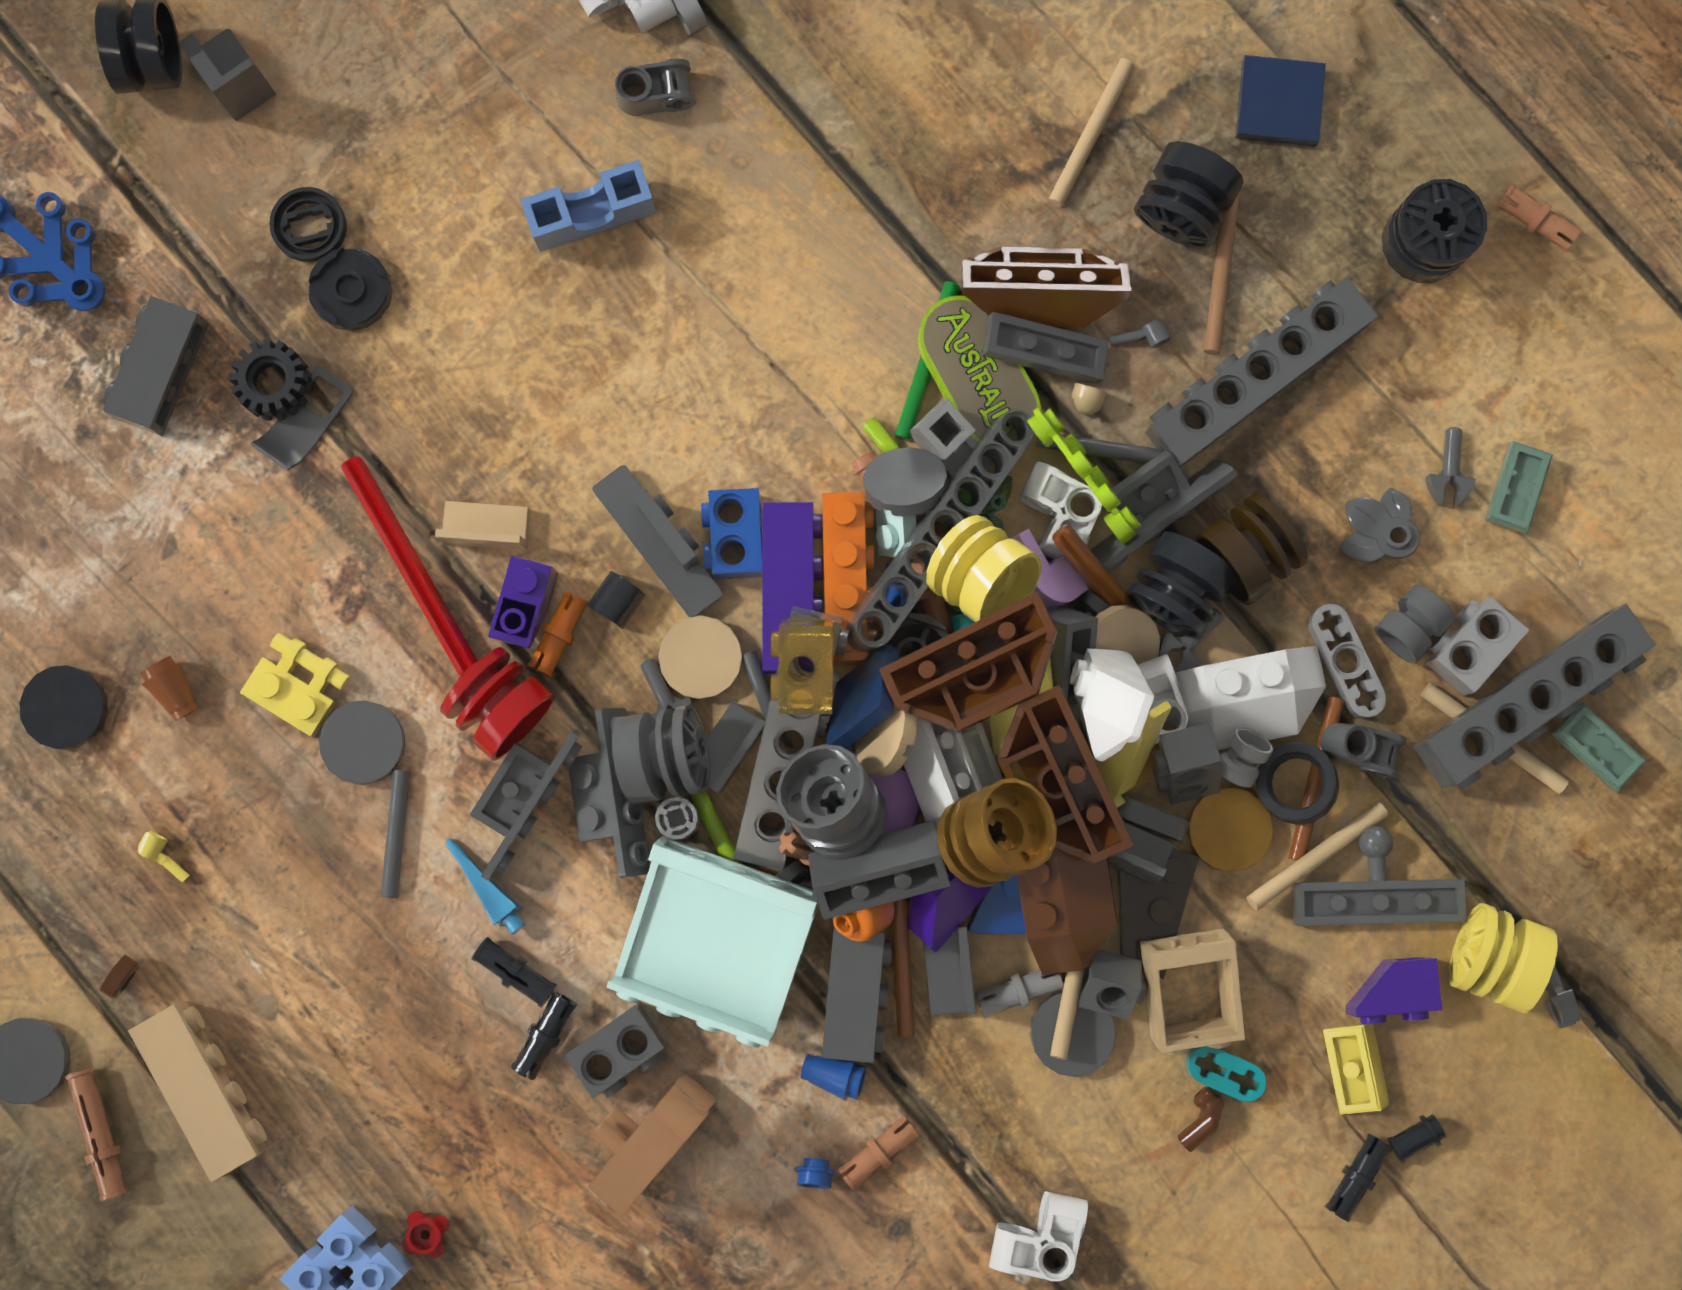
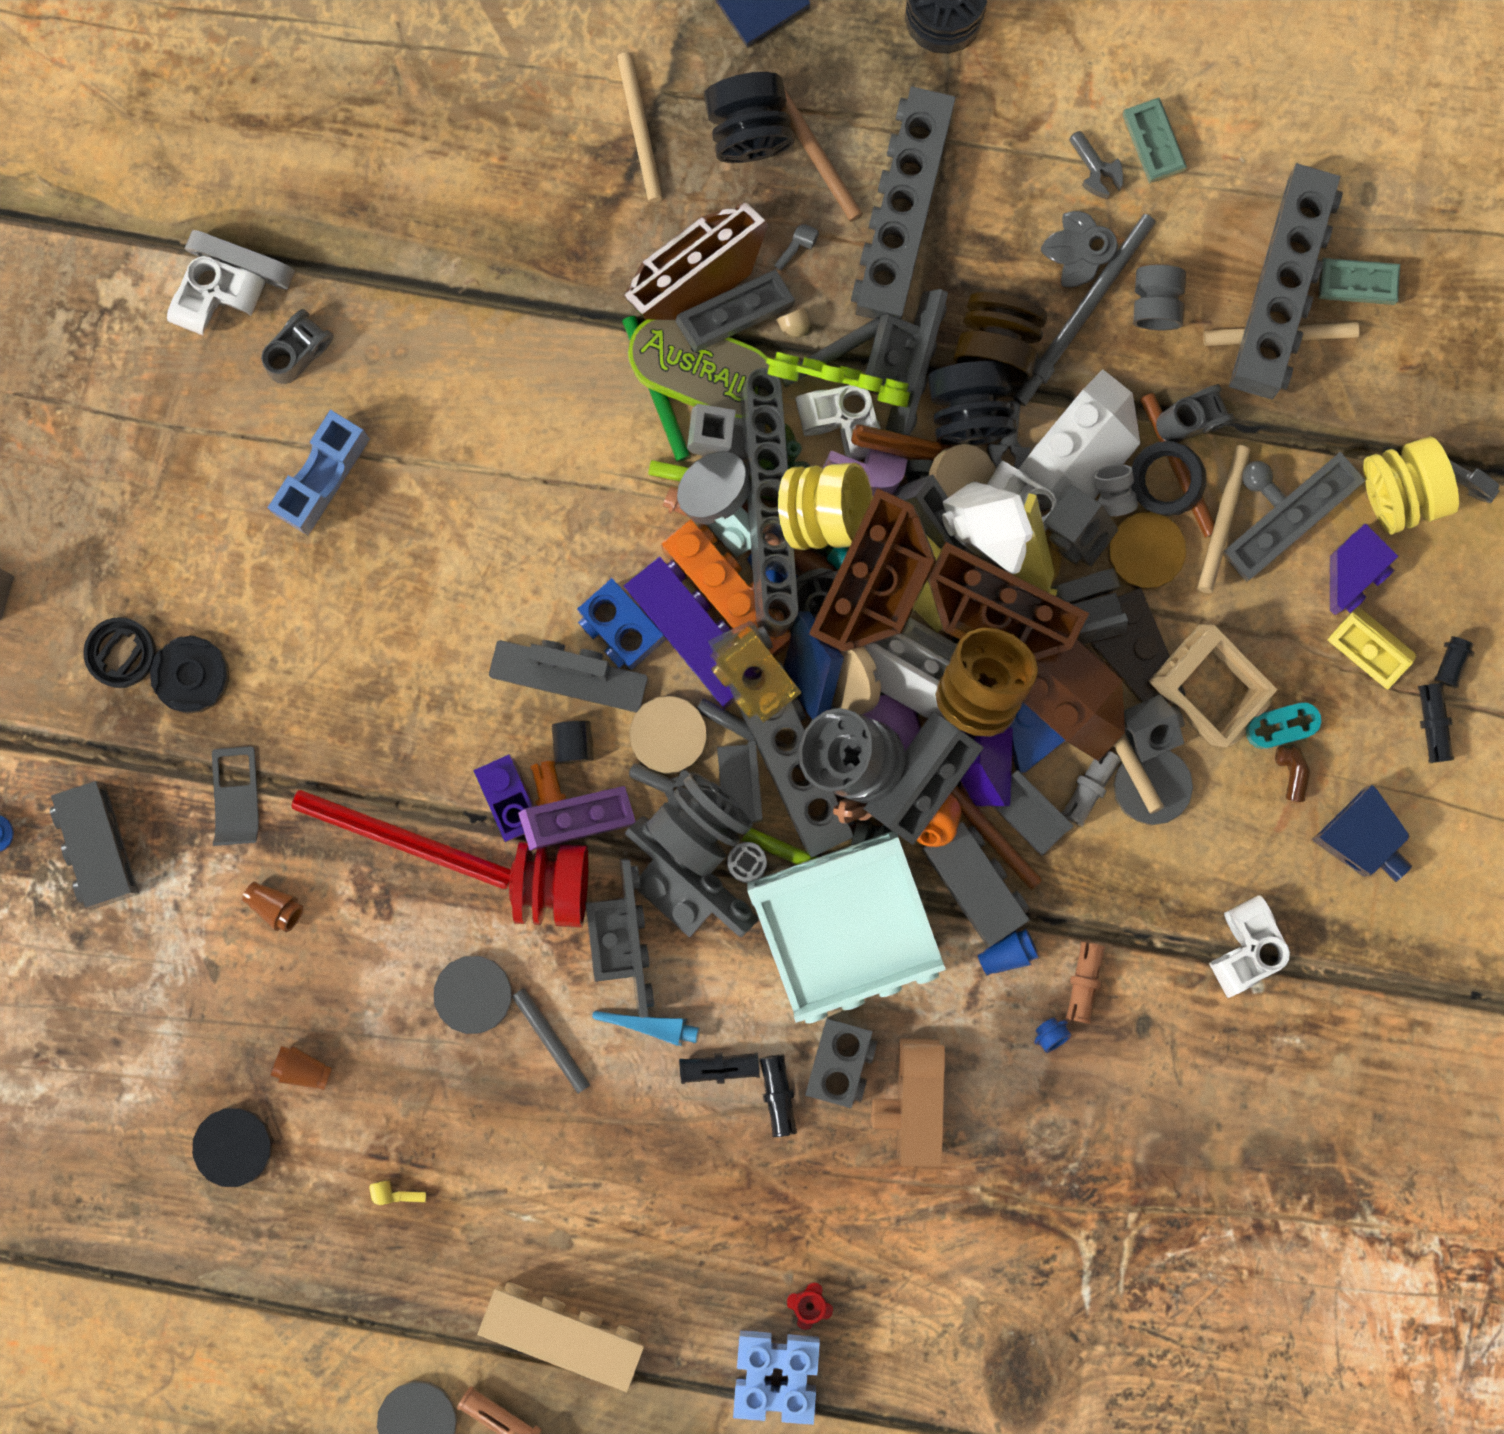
camera: 30 degrees left, 0 degrees up
(119, 977) = (437, 1305): reddish brown tile -> none
(252, 366) = (166, 781): black tyre -> none
(259, 536) = (273, 906): none -> dark orange cone
(289, 696) = (393, 1004): light yellow plate -> none
(484, 525) = (432, 766): tan panel -> none
(564, 665) = (576, 817): none -> medium lavender plate
(1220, 1226) = (1367, 836): none -> dark blue torso
(1269, 603) = (1044, 366): none -> dark grey bar
(1364, 665) = (1129, 347): light grey beam -> none
(1481, 652) = (1224, 280): light grey brick -> none

